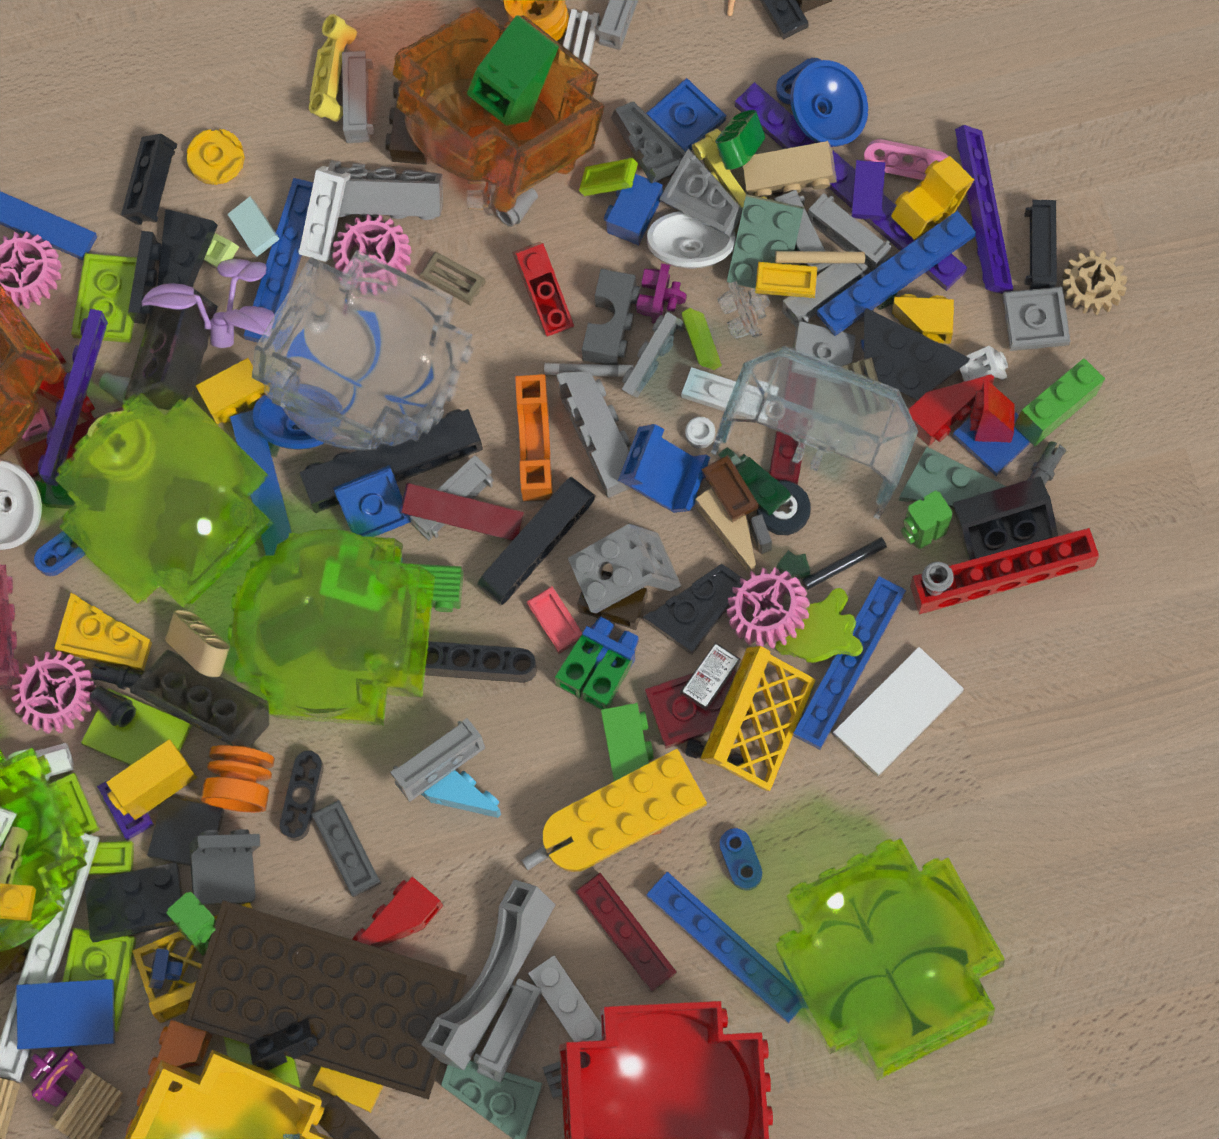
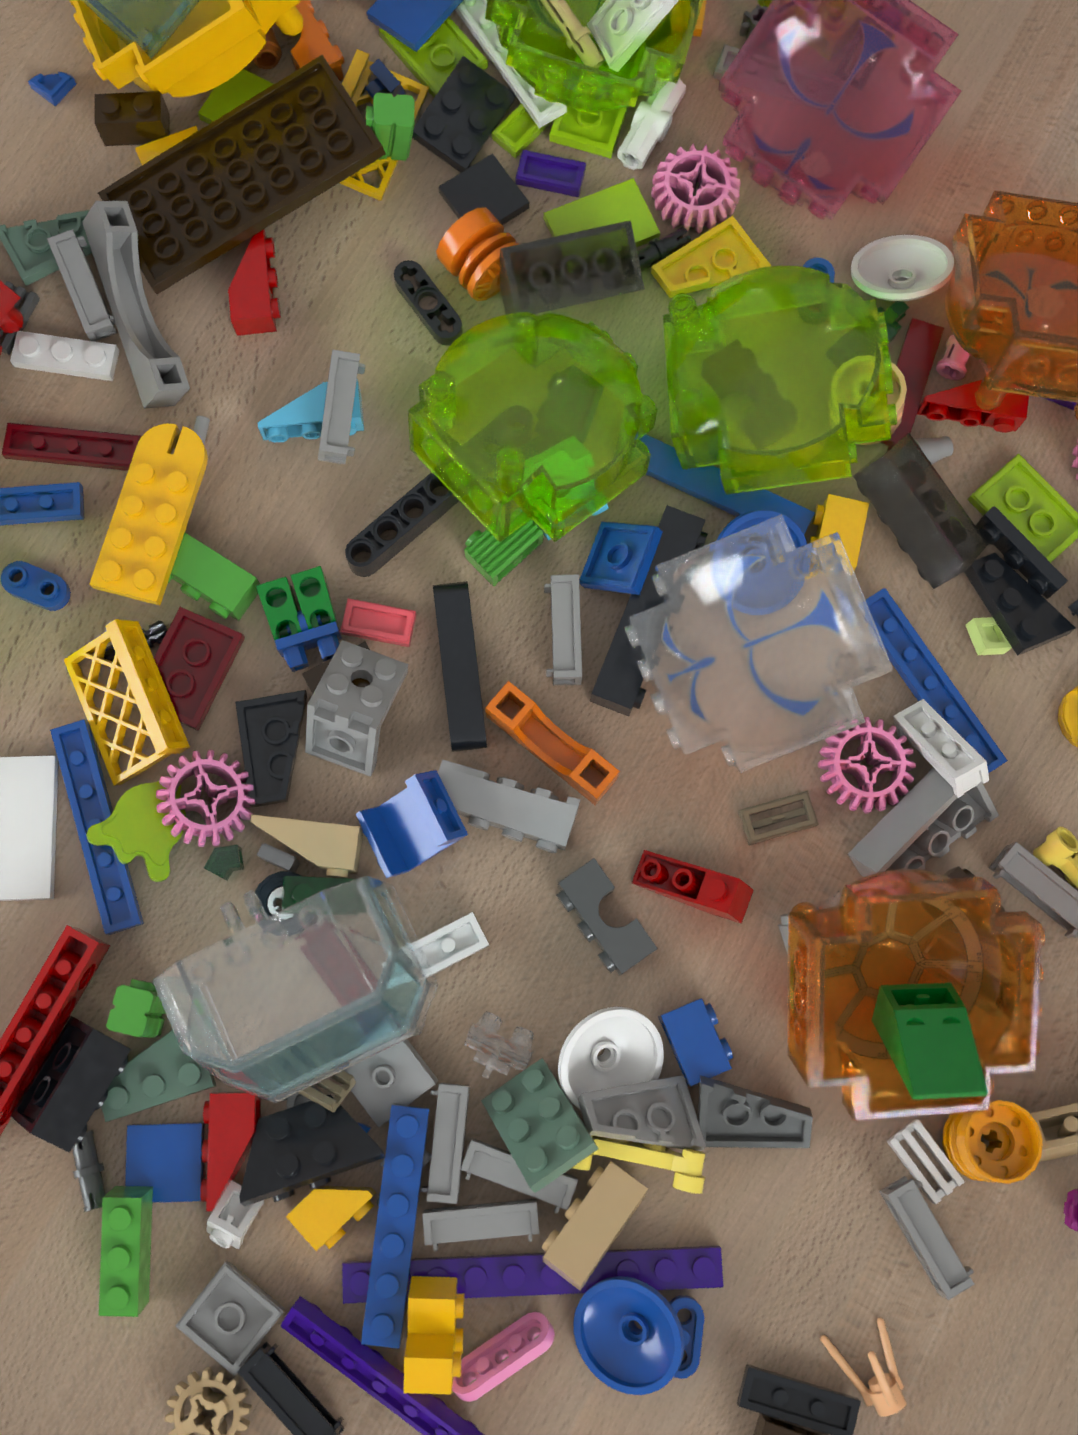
camera: 125 degrees right, 5 degrees up
(75, 388) = (952, 396): dark purple plate -> none
(114, 707) = (640, 214): black cone -> none
(150, 780) = (540, 184): yellow brick -> none
(197, 643) = (624, 313): tan beam -> none
(222, 324) = (884, 577): lavender plant -> none
(223, 866) = (422, 191): dark grey bracket -> none
(253, 226) = (988, 685): light aqua tile -> none
(269, 1050) = (233, 108): black hinge -> none
(346, 848) = (353, 301): dark grey tile -> none
(461, 512) = (540, 619): dark red tile -> none
(595, 369) = (607, 825): light grey bar -> none
(608, 177) = (747, 1045): lime tile -> none
(659, 280) = (580, 968): magenta hips -> none
(659, 345) = (533, 917): light grey wing -> none
(686, 115) = (749, 1186): blue tile -> none
(700, 432) = (425, 898): white tile -> none
(701, 339) = (507, 980): lime tile -> none
(710, 676) = (195, 693): tile -> none
(730, 488) = (334, 861): reddish brown tile -> none
(740, 139) = (666, 1204): green beam -> none
(786, 279) = (483, 1107): yellow tile -> none
(819, 257) = (473, 1161): tan bar -> none
(844, 563) = (186, 909): black bar -> none
(868, 190) = (503, 1283): dark purple tile -> none
(937, 572) = (51, 949): light grey cone -> none
(992, 415) = (165, 1164): red slope -> none

